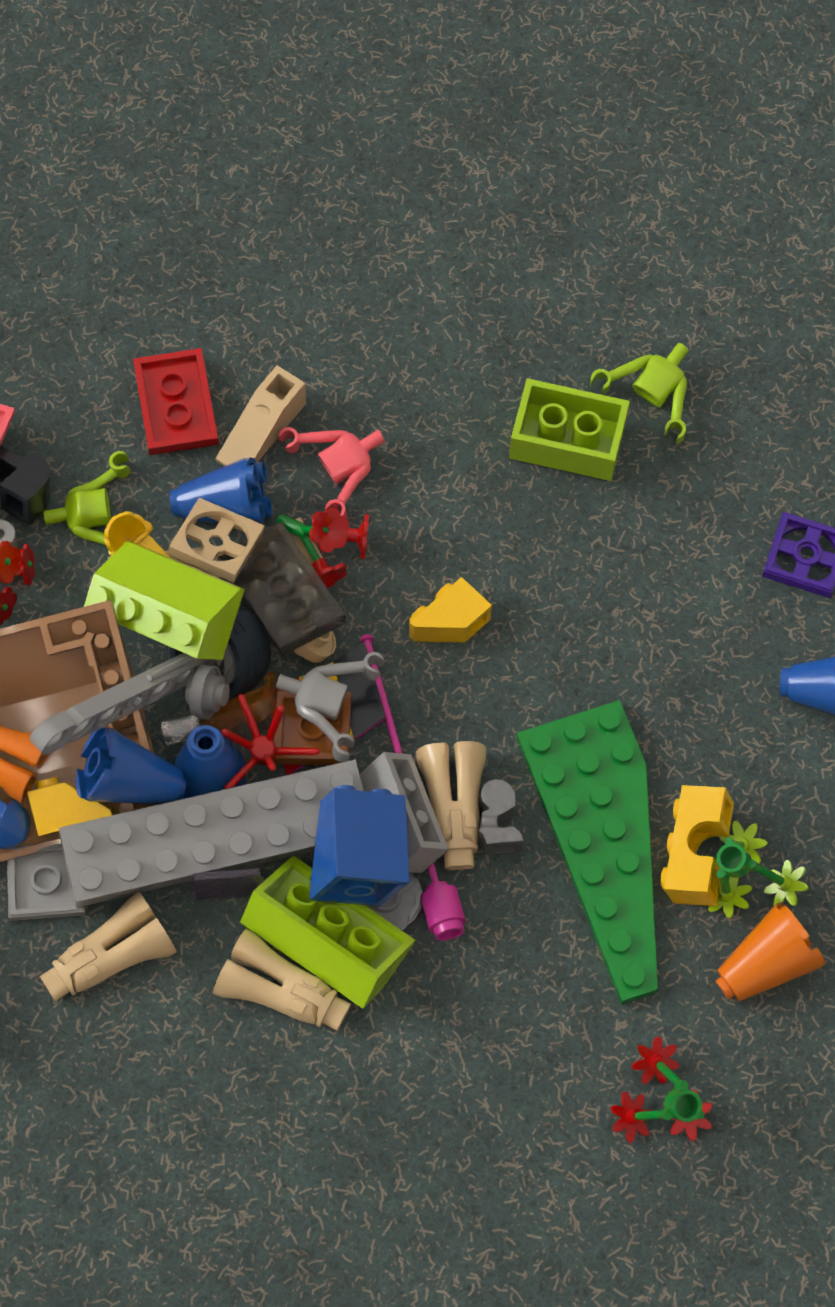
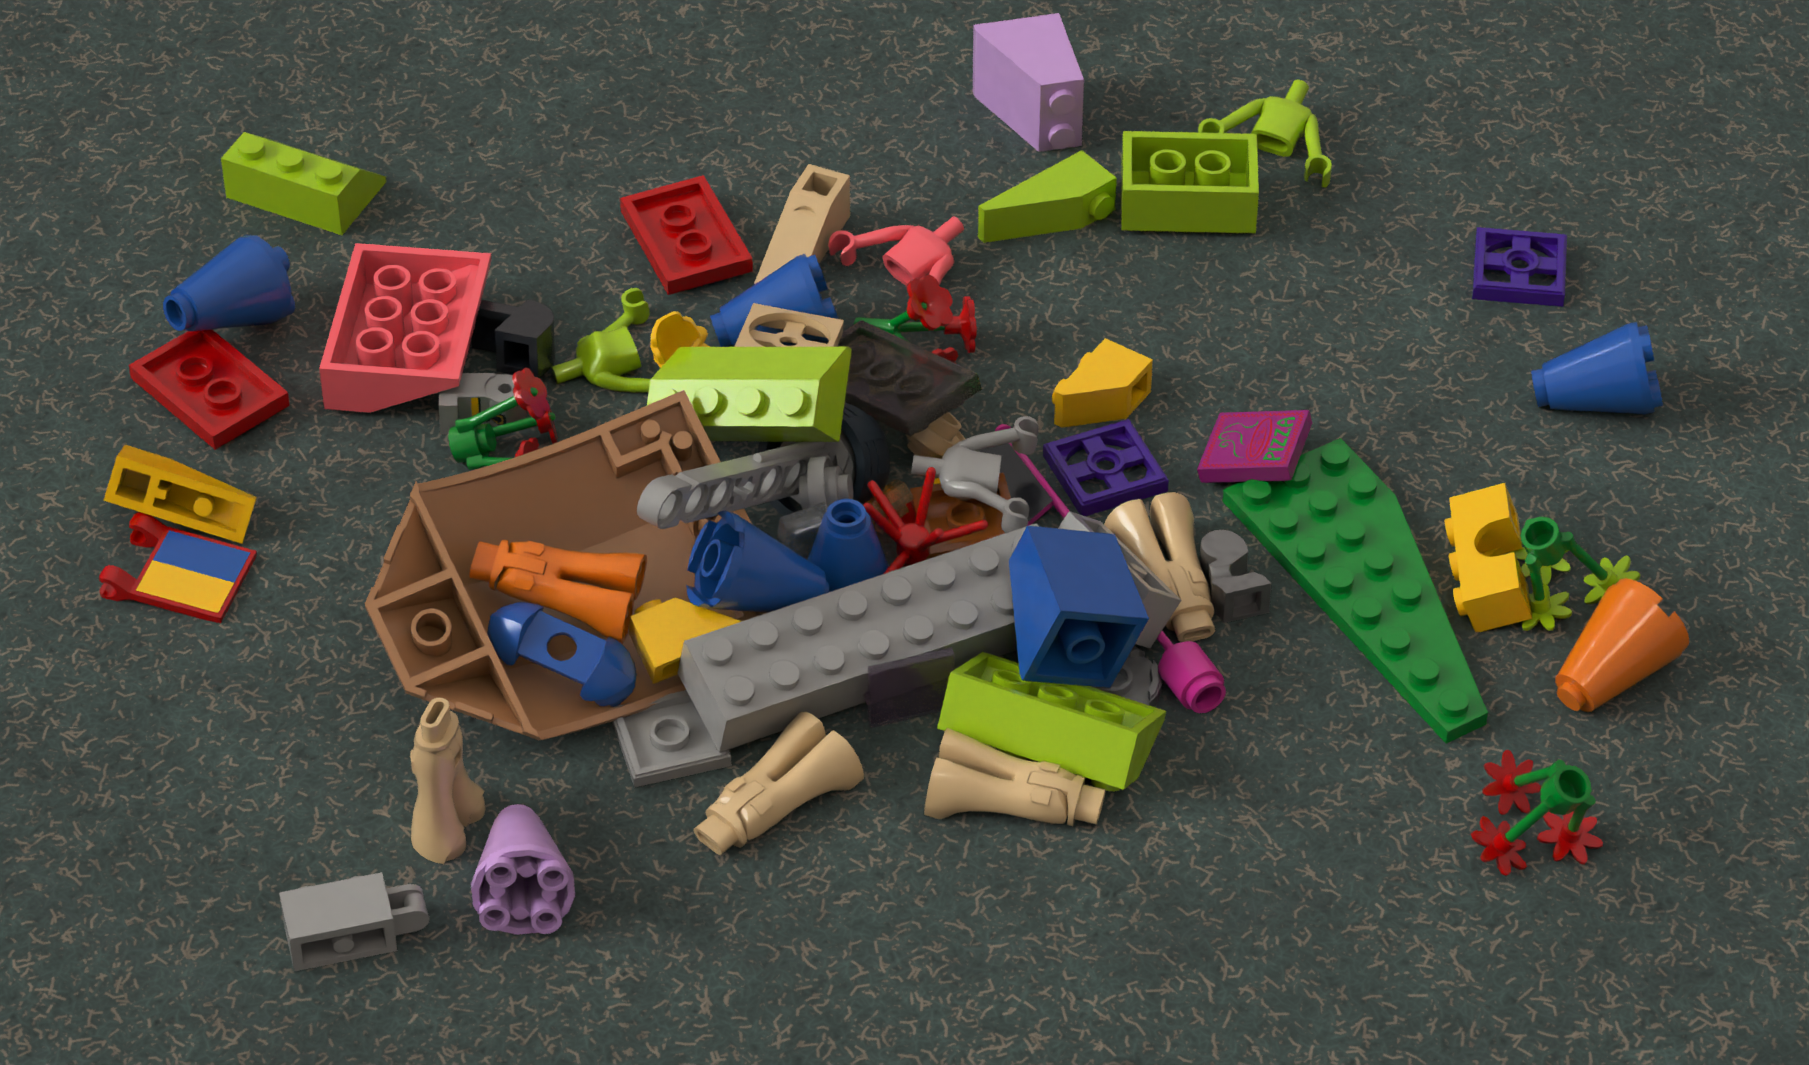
camera: 10 degrees left, 20 degrees down
(440, 717) = (1093, 442): none -> dark purple piece
(461, 424) = (1051, 201): none -> lime slope
(473, 306) = (1030, 79): none -> lavender slope
(550, 698) = (1255, 446): none -> magenta tile

